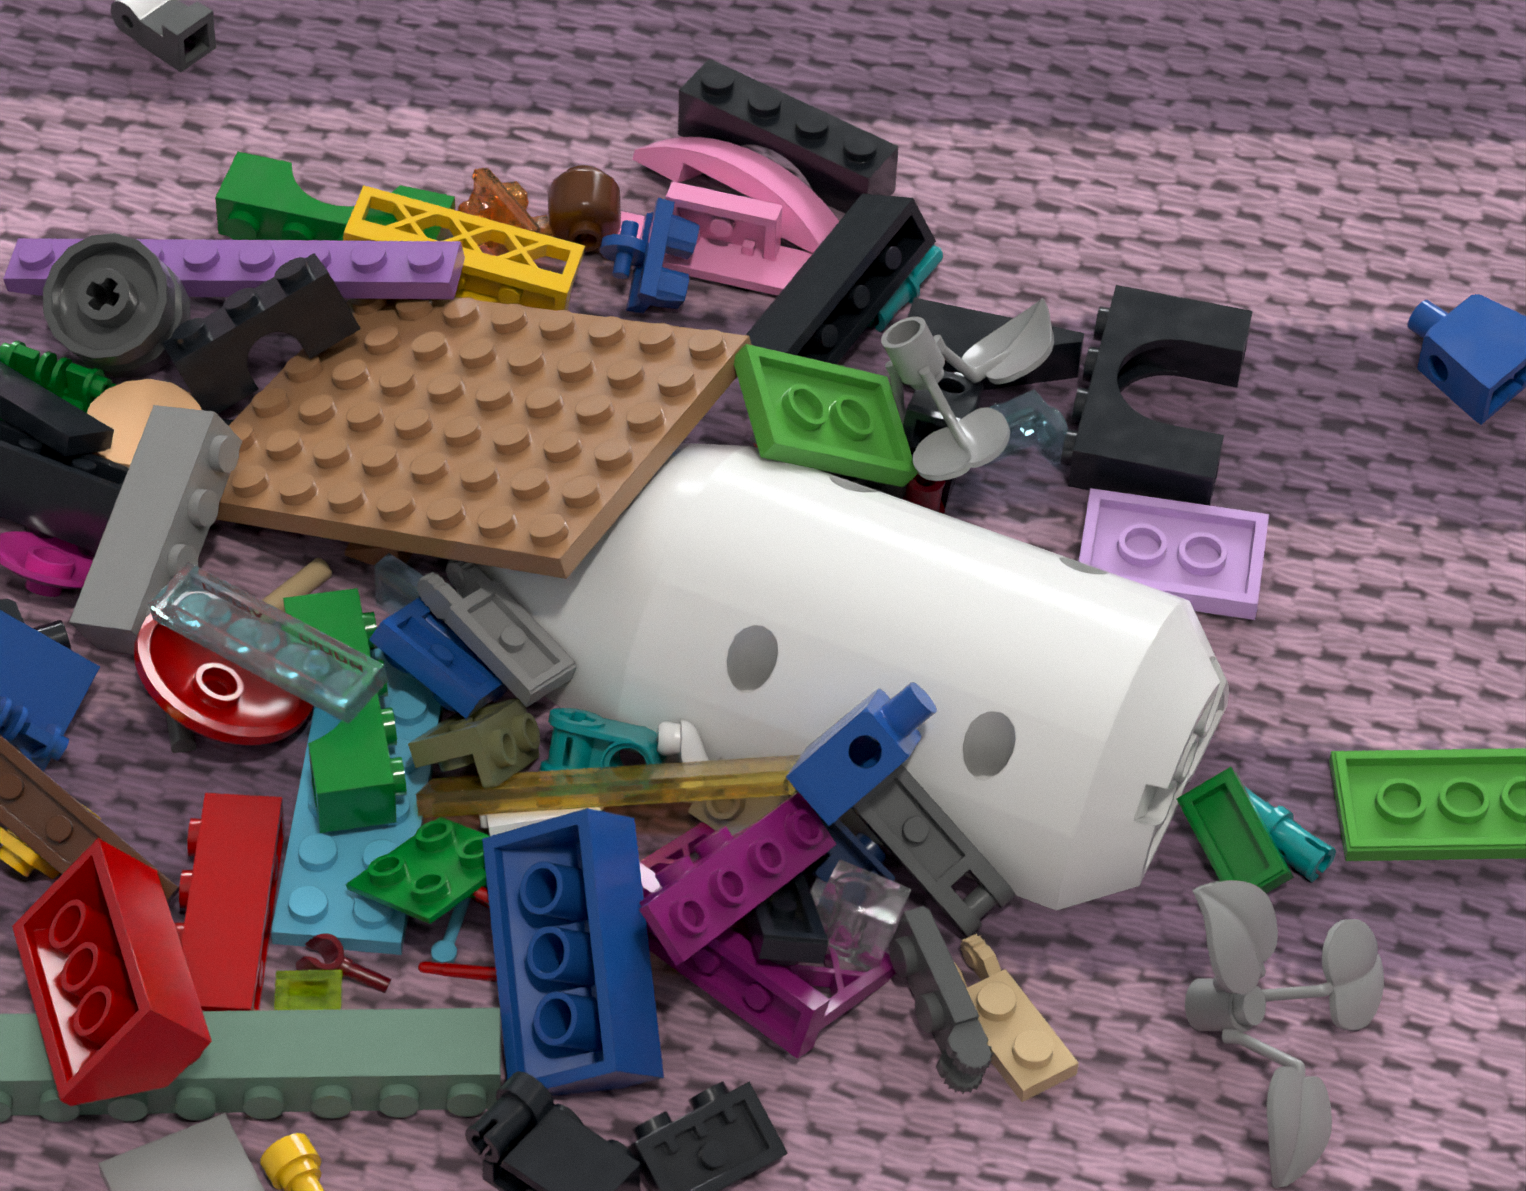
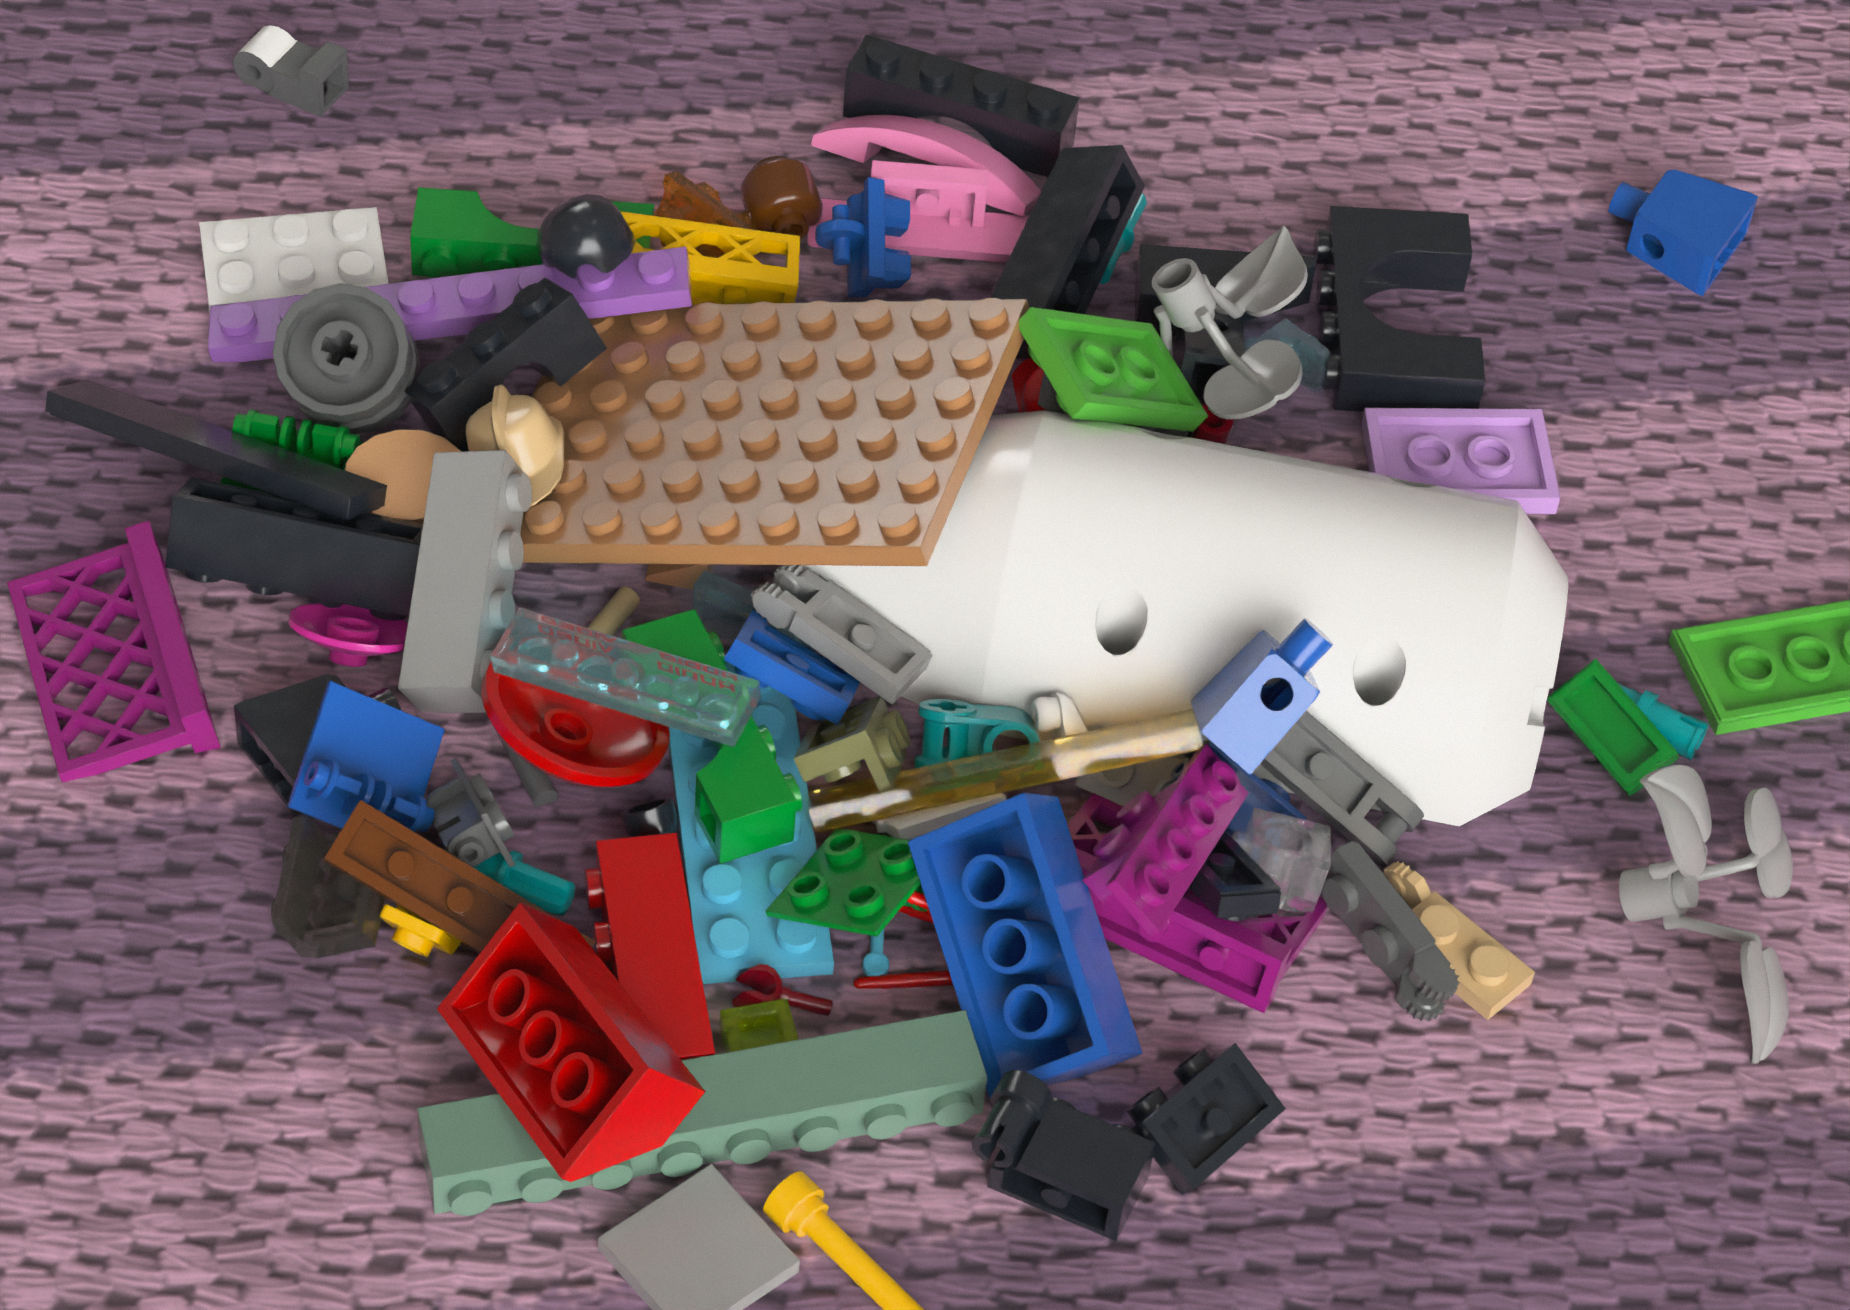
camera: 15 degrees left, 0 degrees up
(98, 755) = (469, 819): none -> dark grey hinge
(110, 197) = (291, 254): none -> white plate
(125, 812) = (531, 883): none -> teal axle
(250, 403) = (525, 432): none -> tan piece
(274, 780) = (651, 818): none -> black hinge
(366, 216) = (582, 233): none -> black hair

